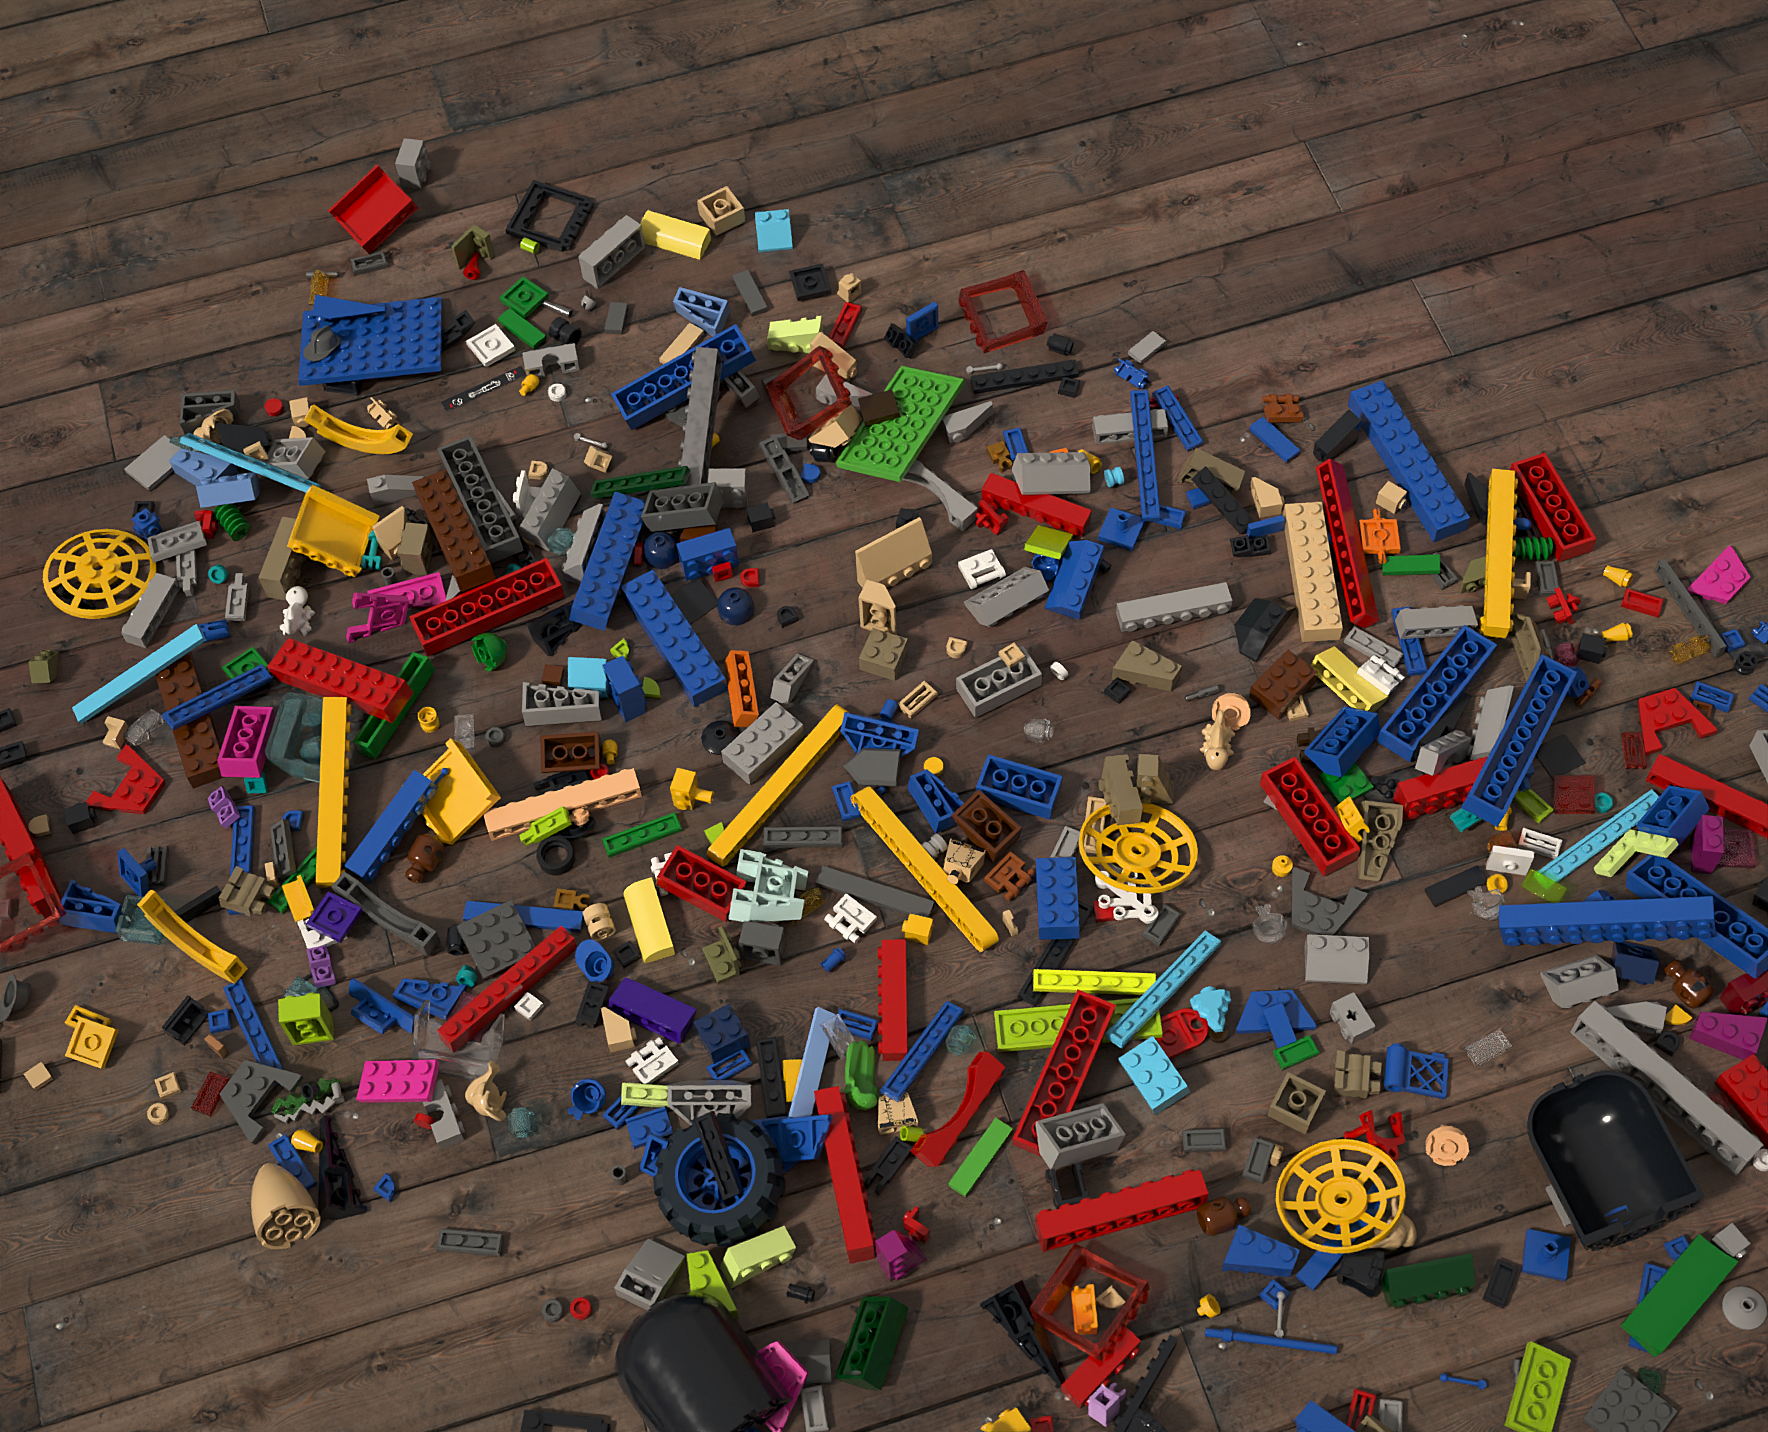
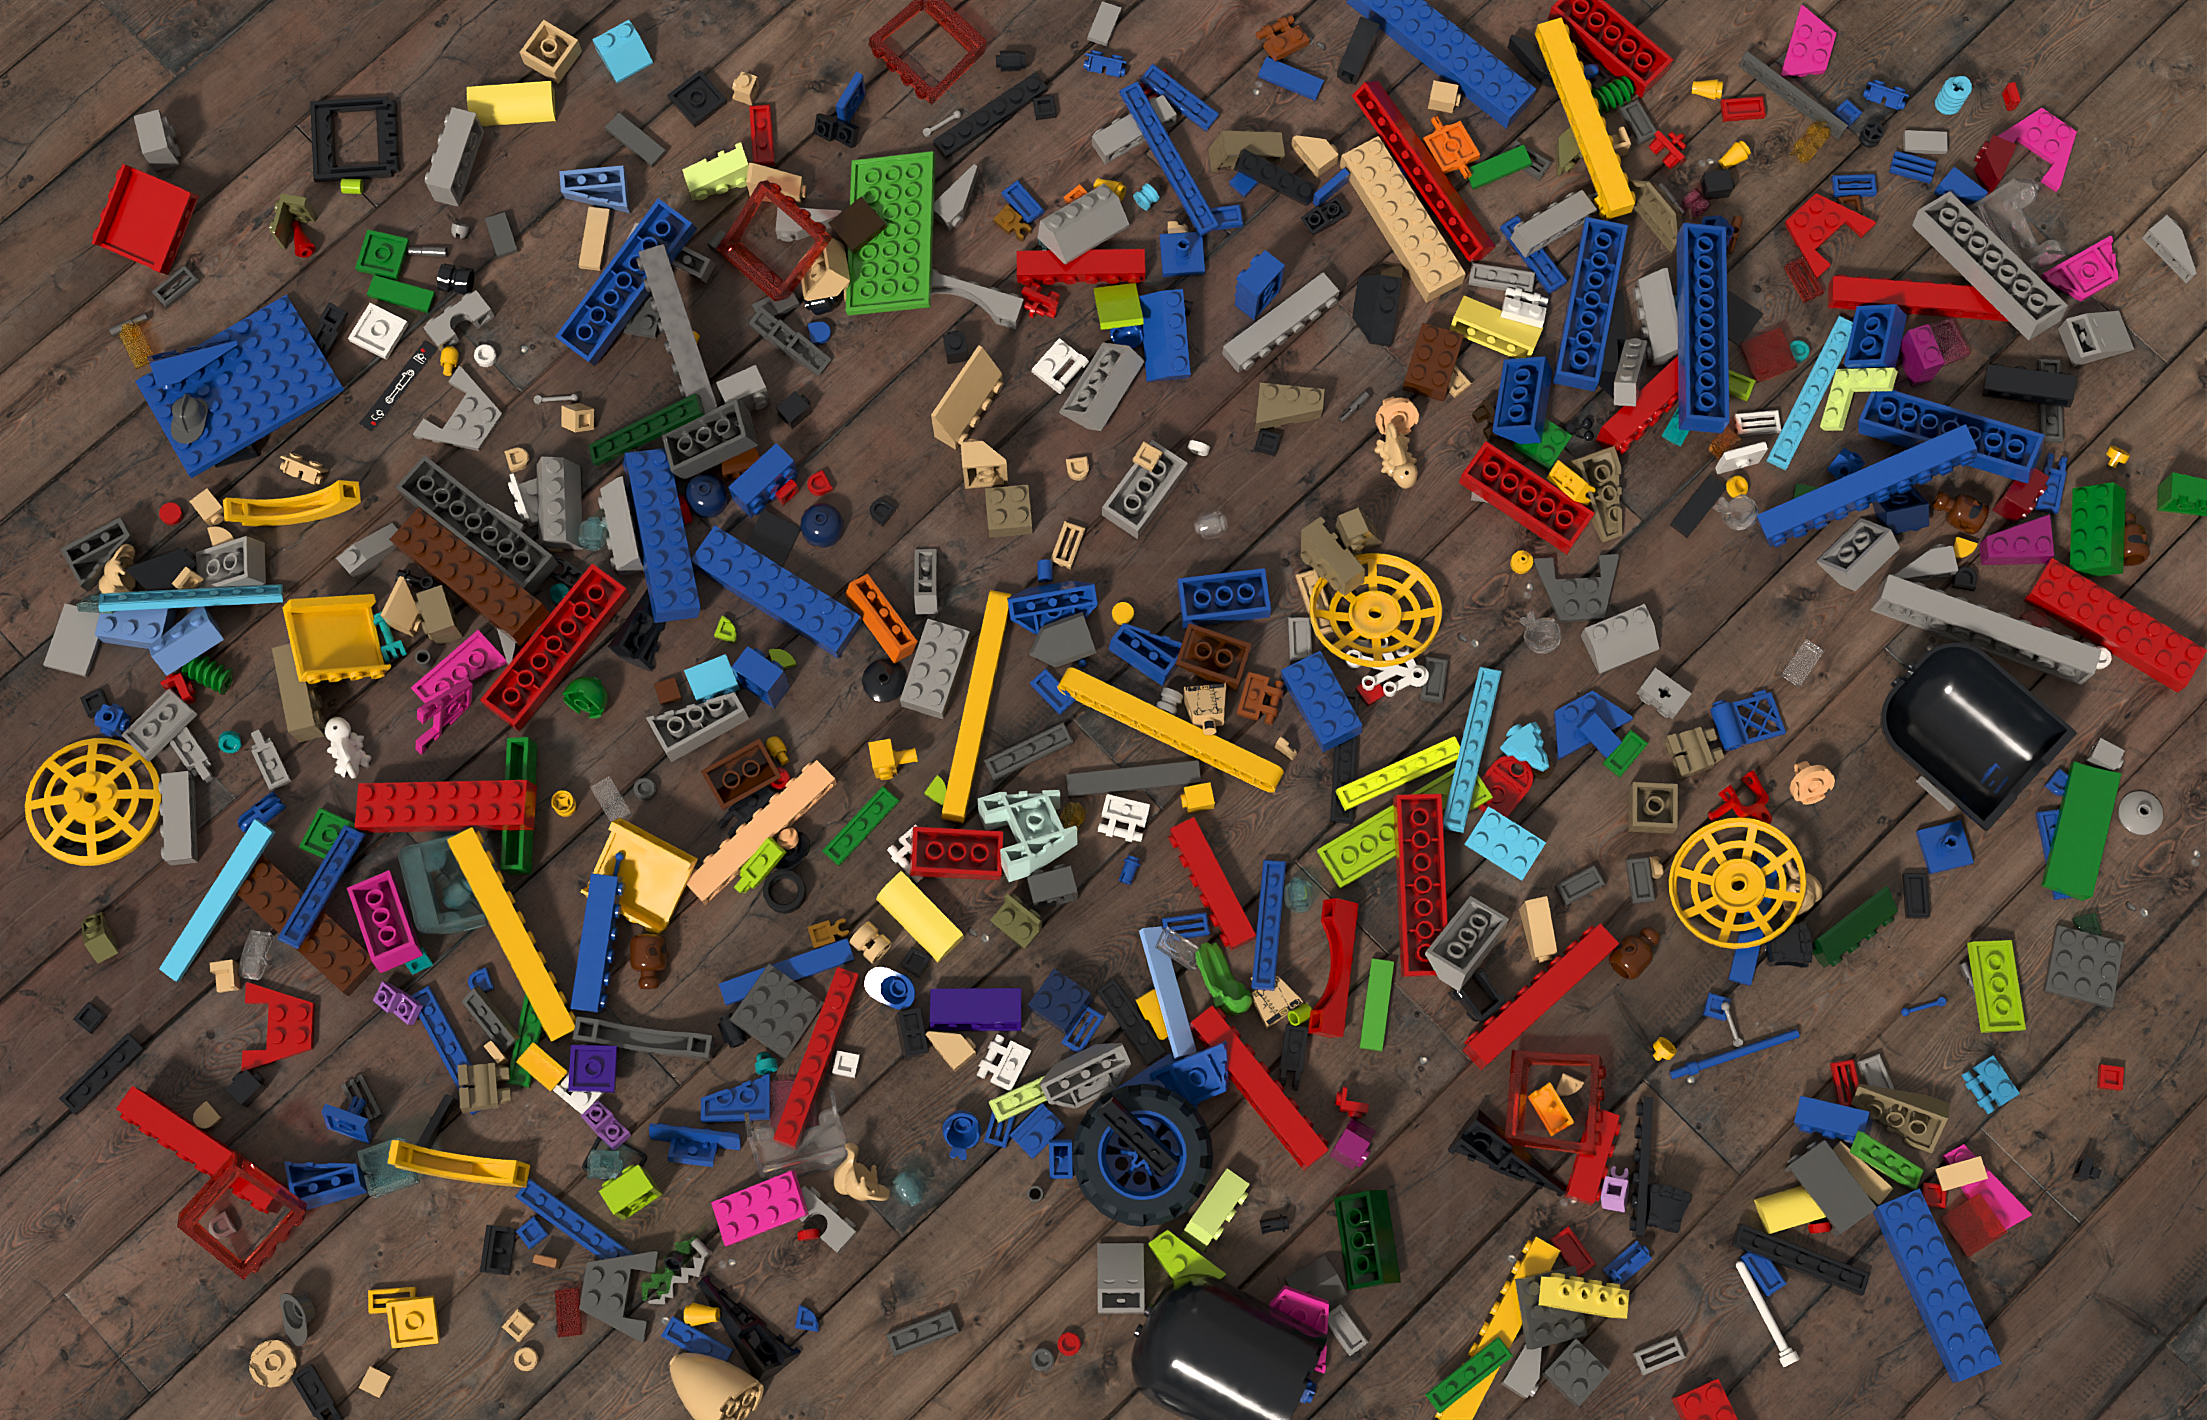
camera: 30 degrees left, 15 degrees up
(519, 432) = (471, 421): none -> light grey wing
(1123, 506) = (1173, 227): none -> tan tile
(1148, 1154) = (1539, 929): none -> tan slope
(1168, 568) = (1259, 284): none -> blue brick
(1259, 1254) = (1685, 975): blue wedge -> none
(1544, 887) = (1783, 469): clear neon green tile -> none

